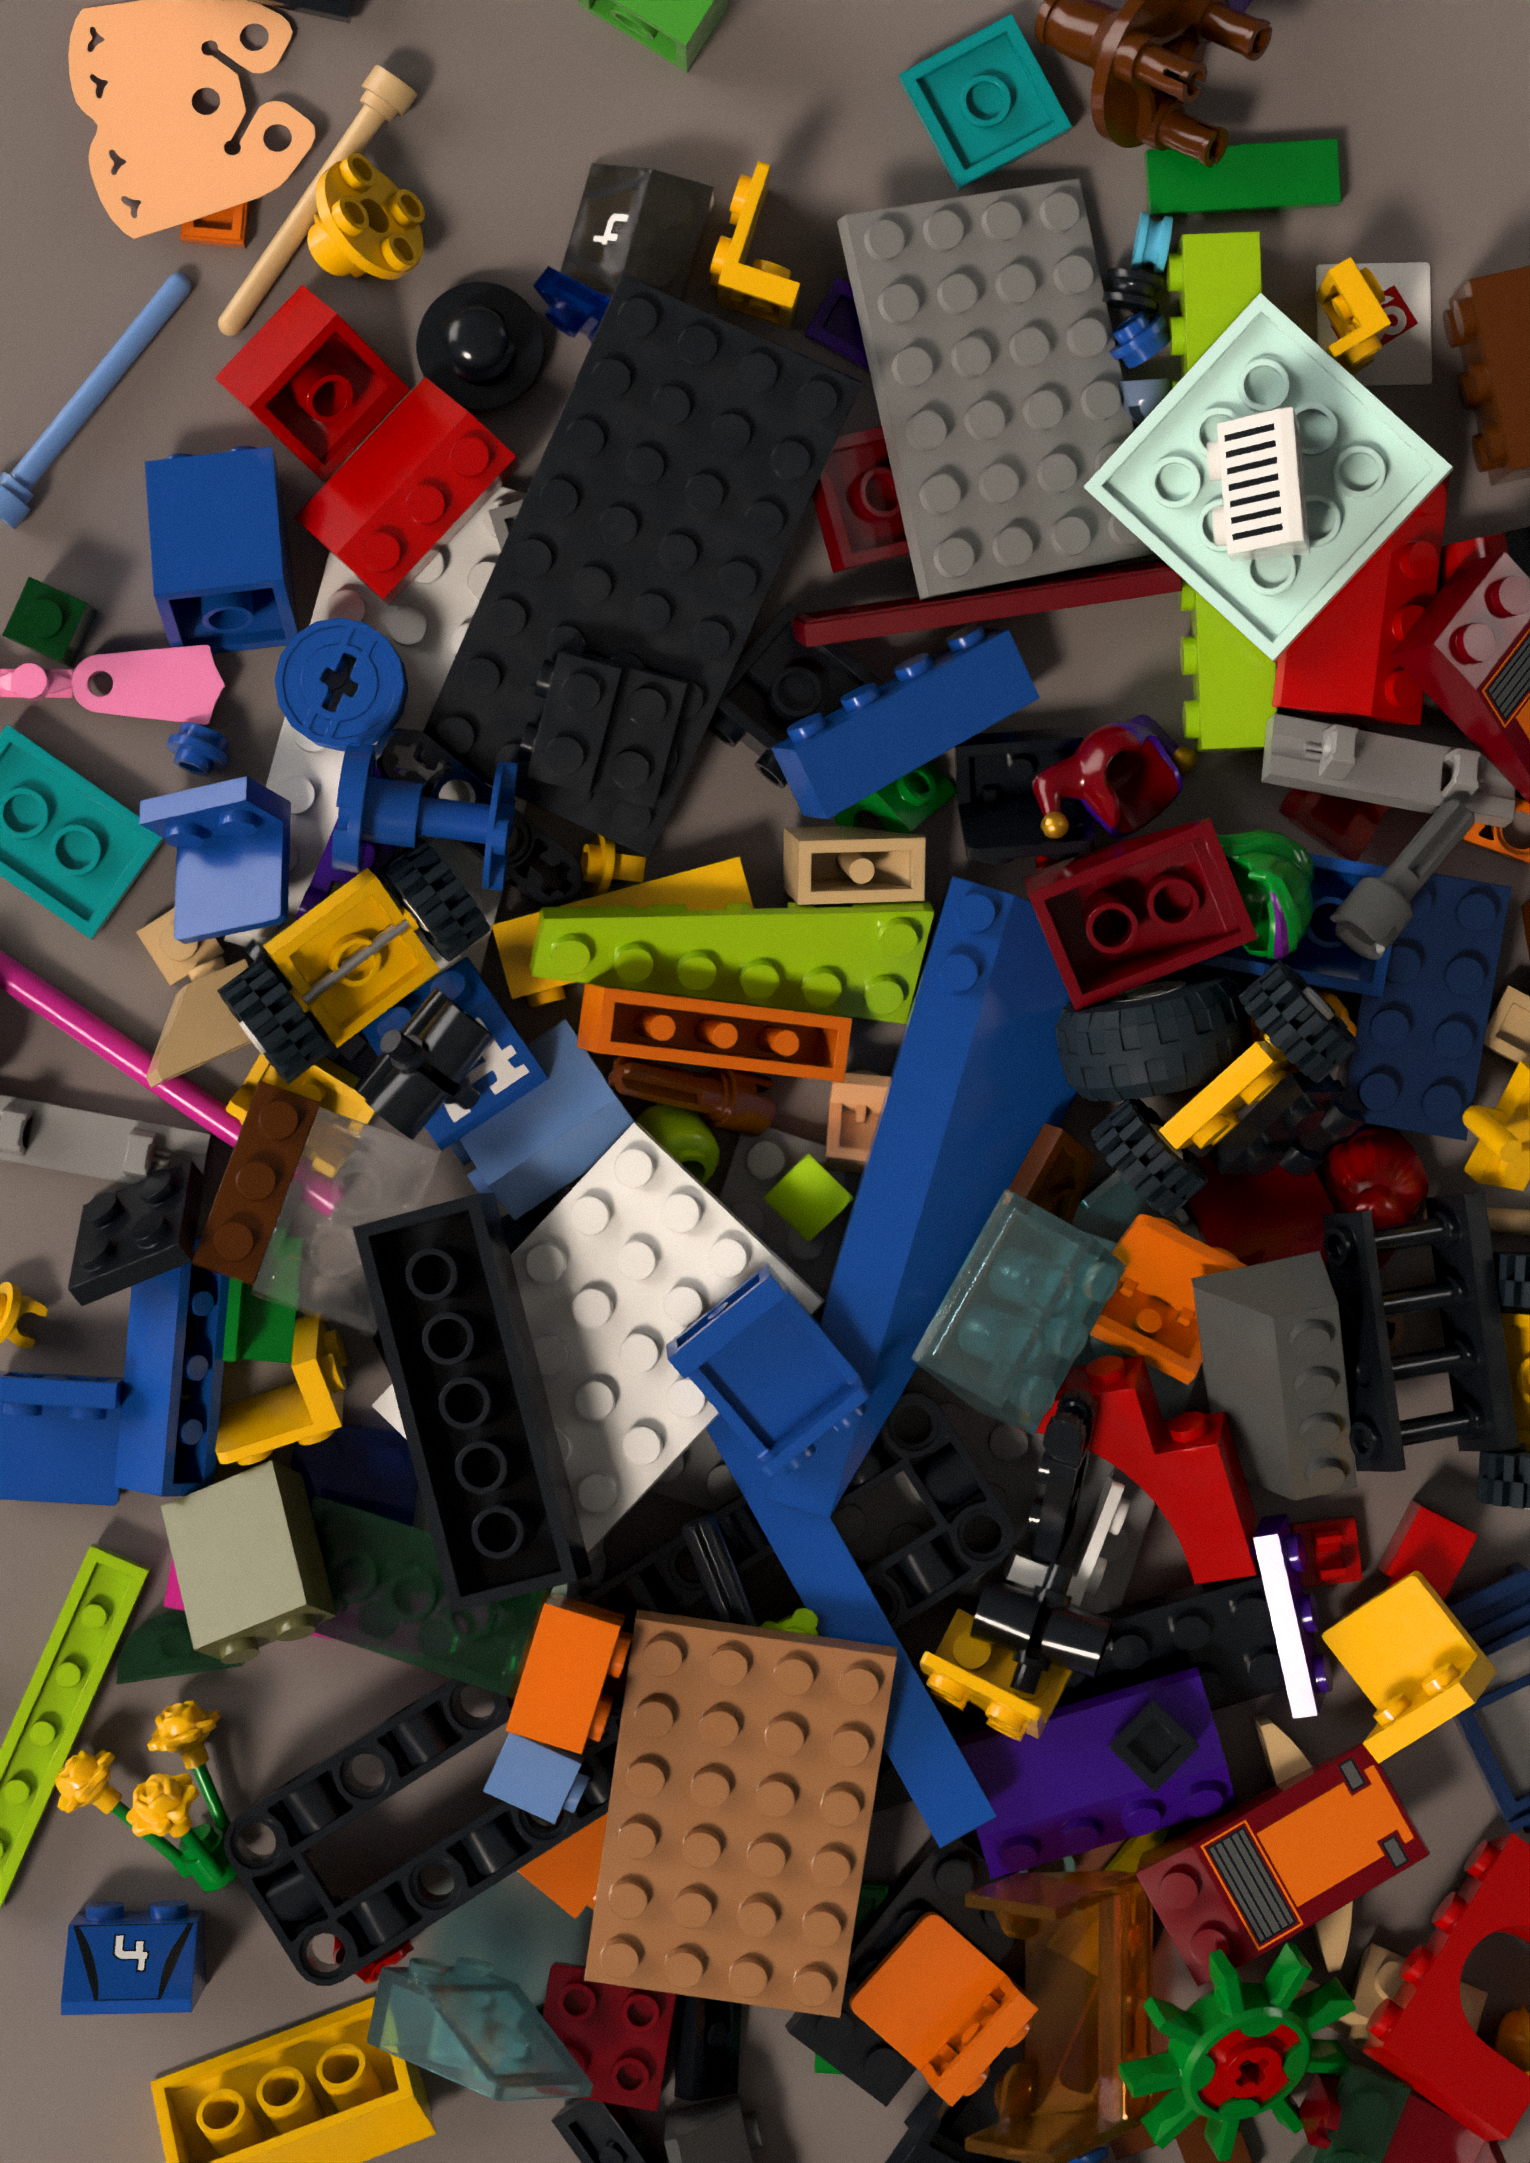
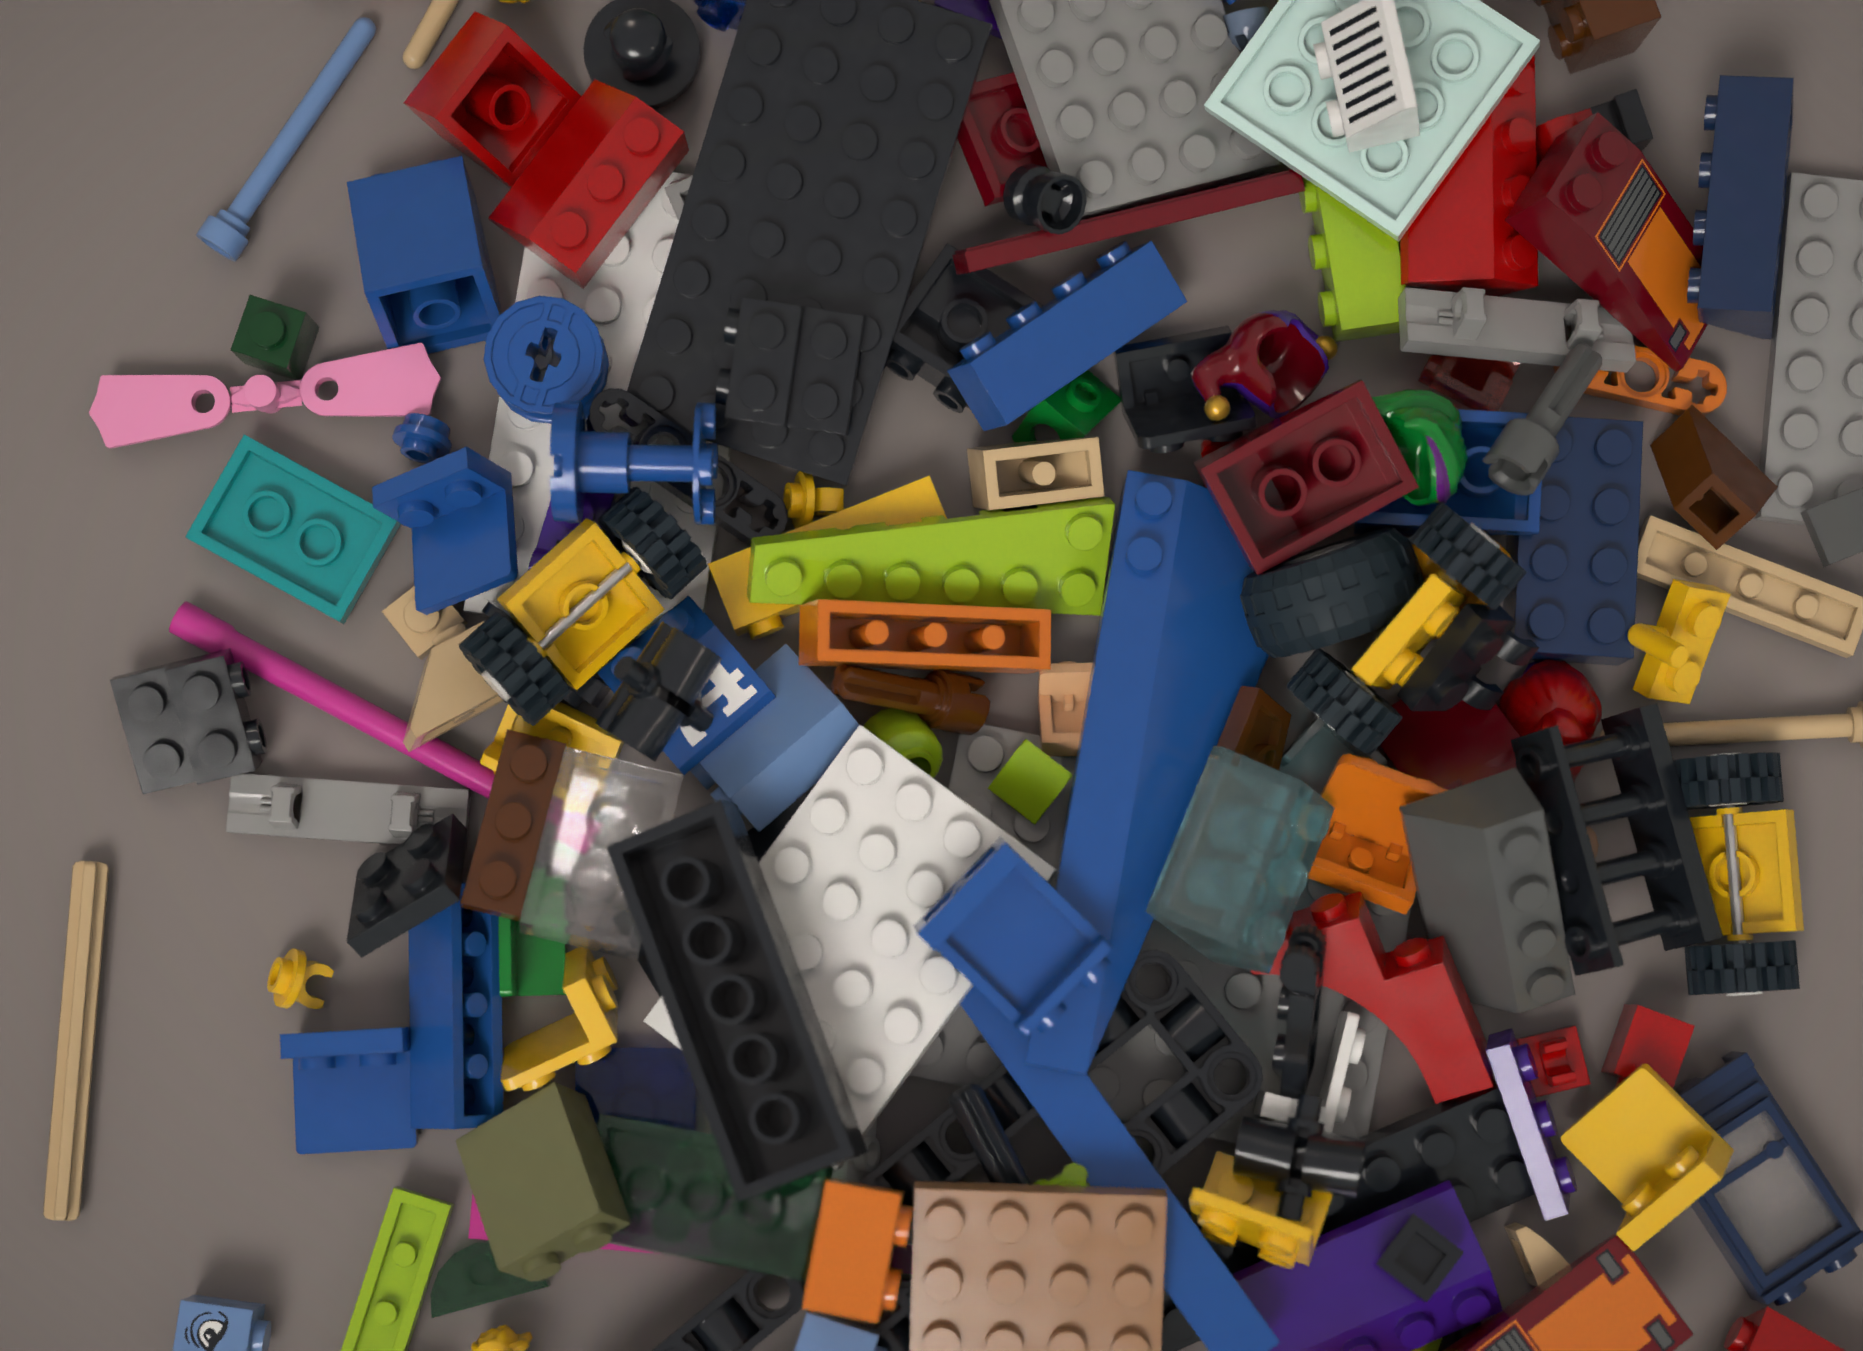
camera: 10 degrees left, 5 degrees down
(897, 576) = (1044, 198): none -> black wheel

